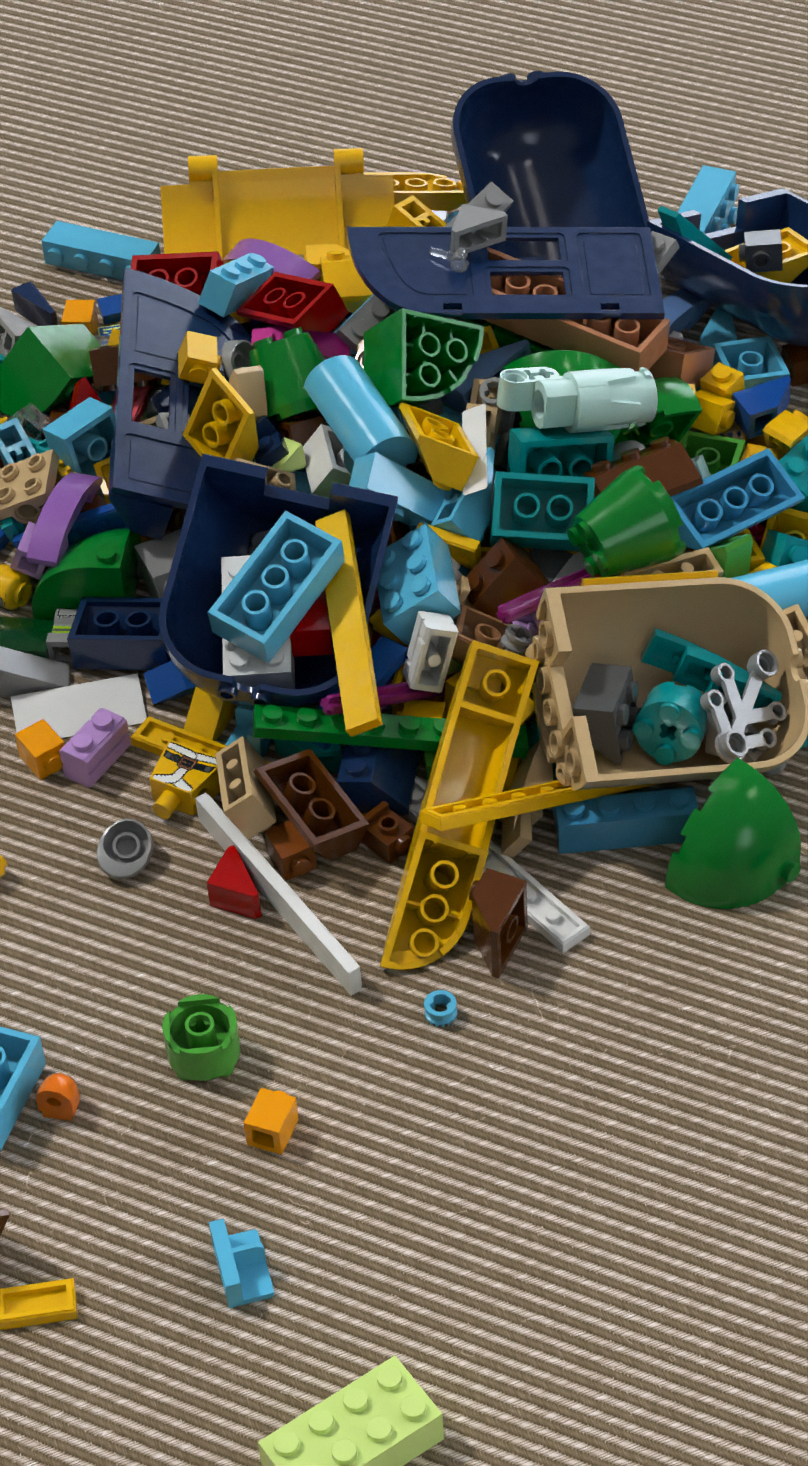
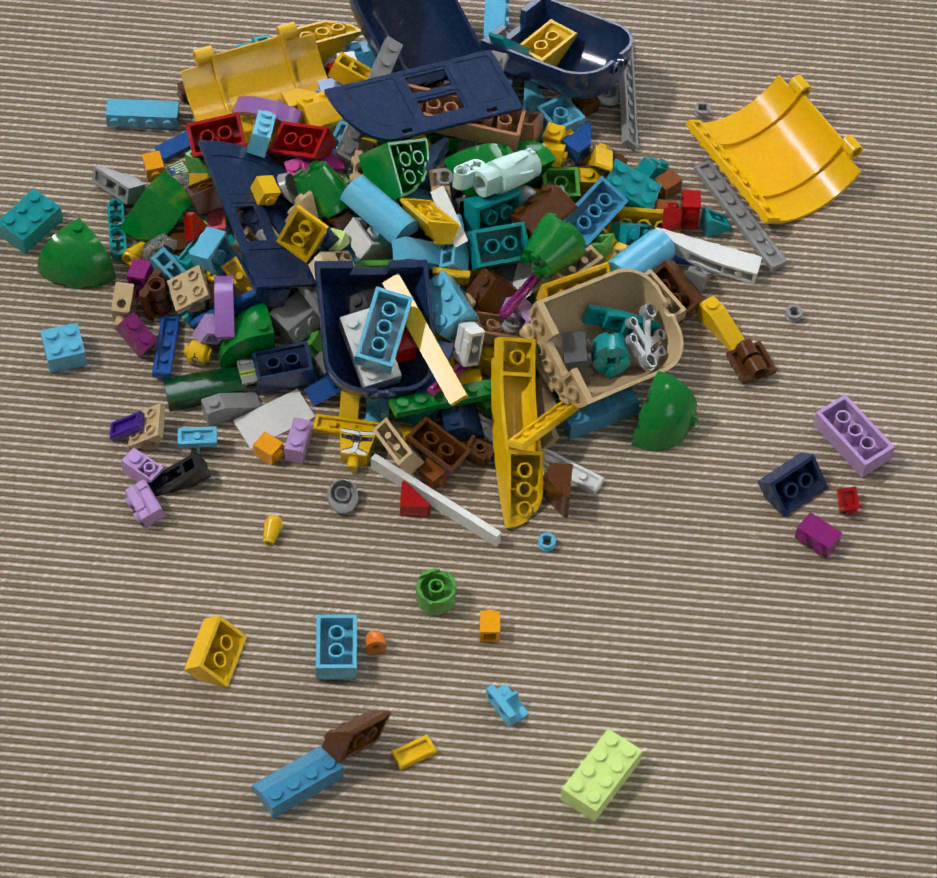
camera: 25 degrees left, 10 degrees up
(33, 305) = (119, 160): dark blue slope -> none
(457, 259) = (398, 97): clear hand -> none
(478, 228) = (400, 76): light grey slope -> none
(762, 251) = (547, 43): dark grey brick -> none

